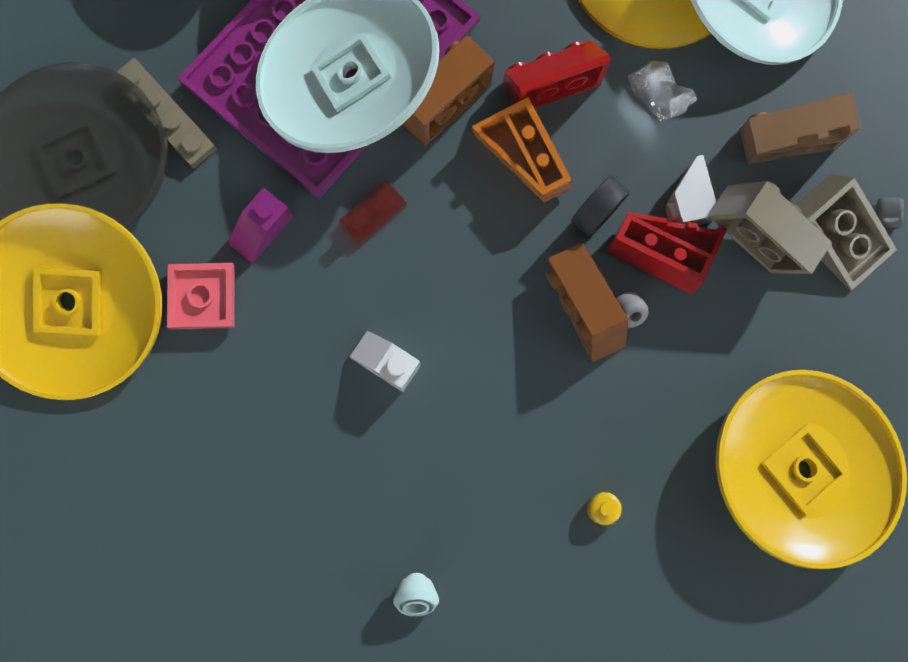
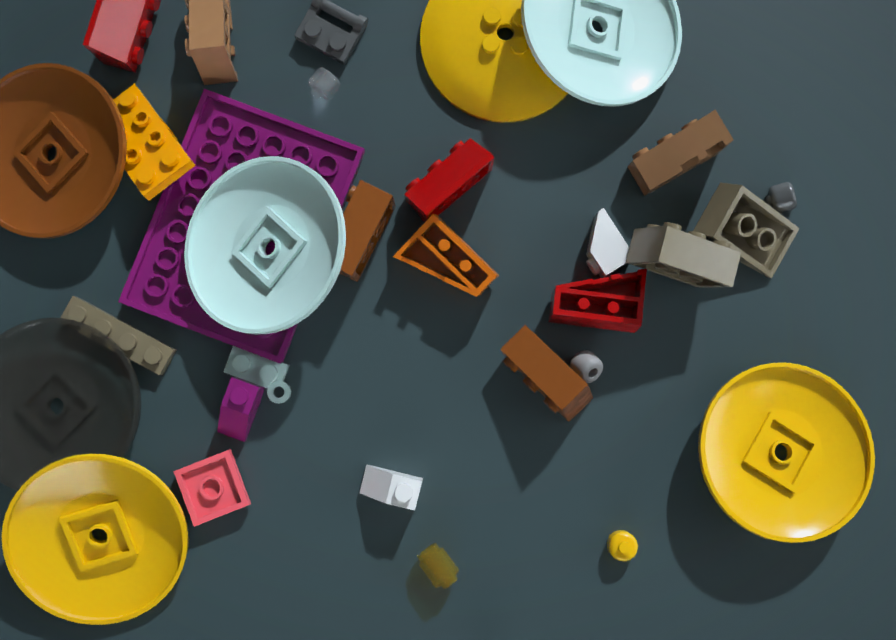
camera: 10 degrees left, 5 degrees up
(299, 199) = (259, 371): none -> light aqua hinge
(373, 213) = (333, 359): clear red hinge -> none
(404, 459) = (438, 566): none -> clear yellow brick
(600, 206) = (530, 286): black tyre -> none
(658, 91) = (546, 161): clear brick -> none

